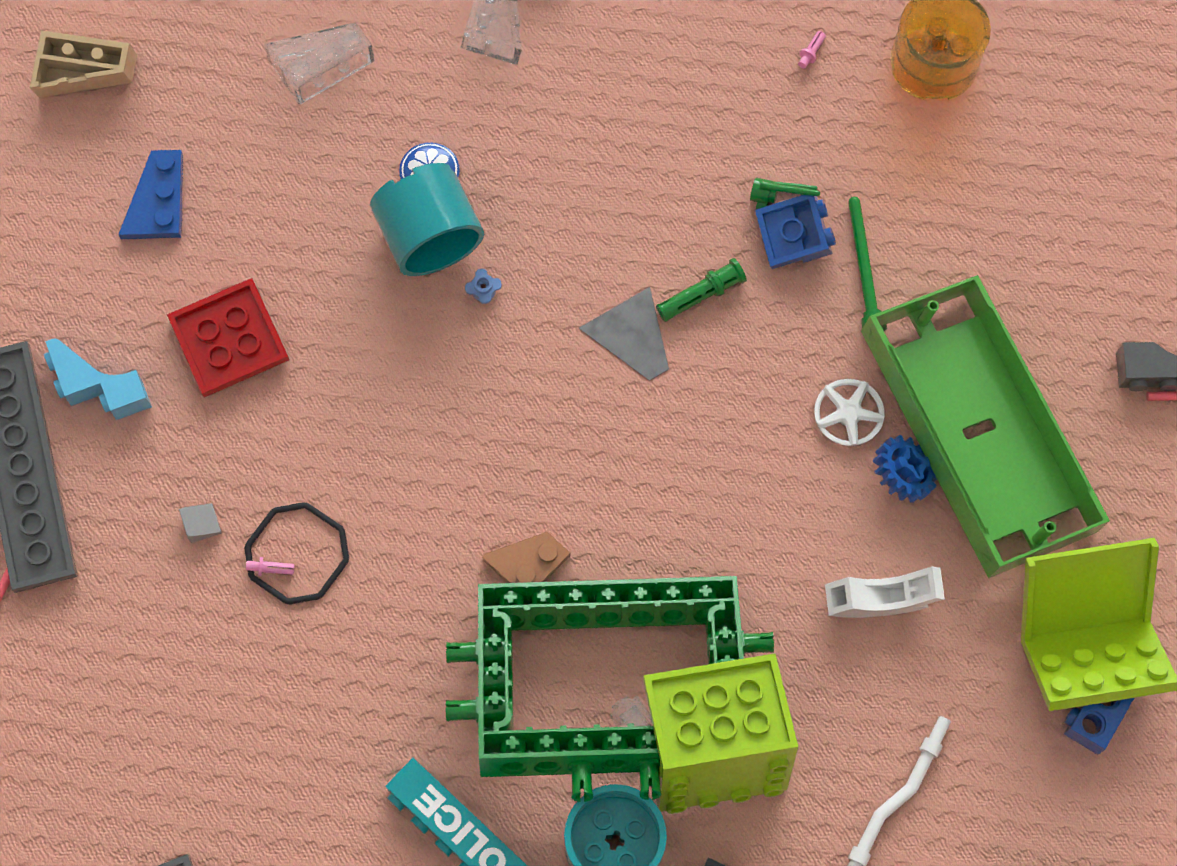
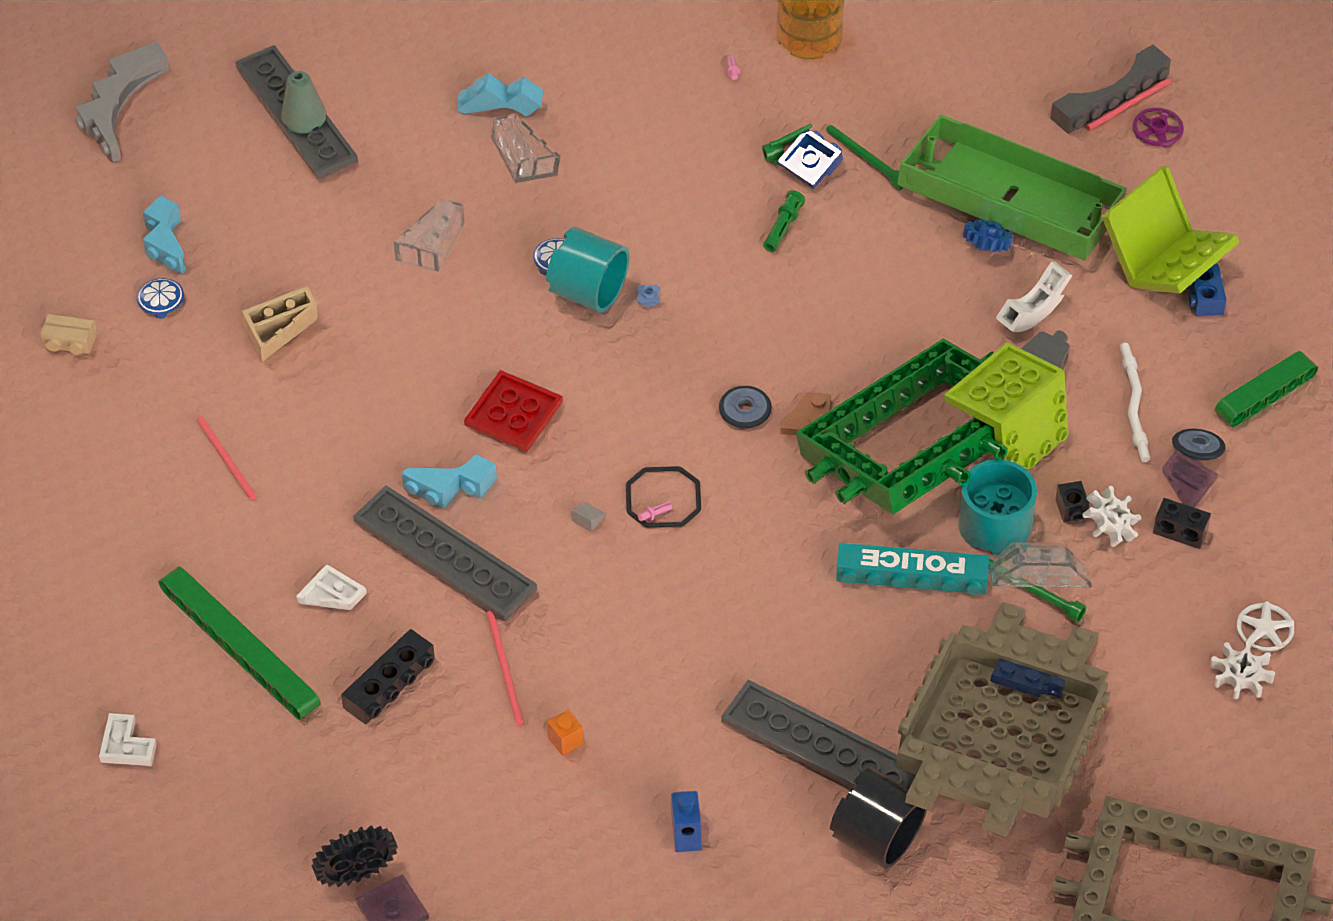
camera: 35 degrees left, 20 degrees down
(157, 199) = (396, 369): blue wing -> none
(469, 520) = (733, 398): none -> sand blue wheel
(632, 334) = (761, 269): flat silver sticker -> none
(842, 671) = (1050, 348): none -> dark grey torso
(849, 411) = (927, 232): white wheel -> none

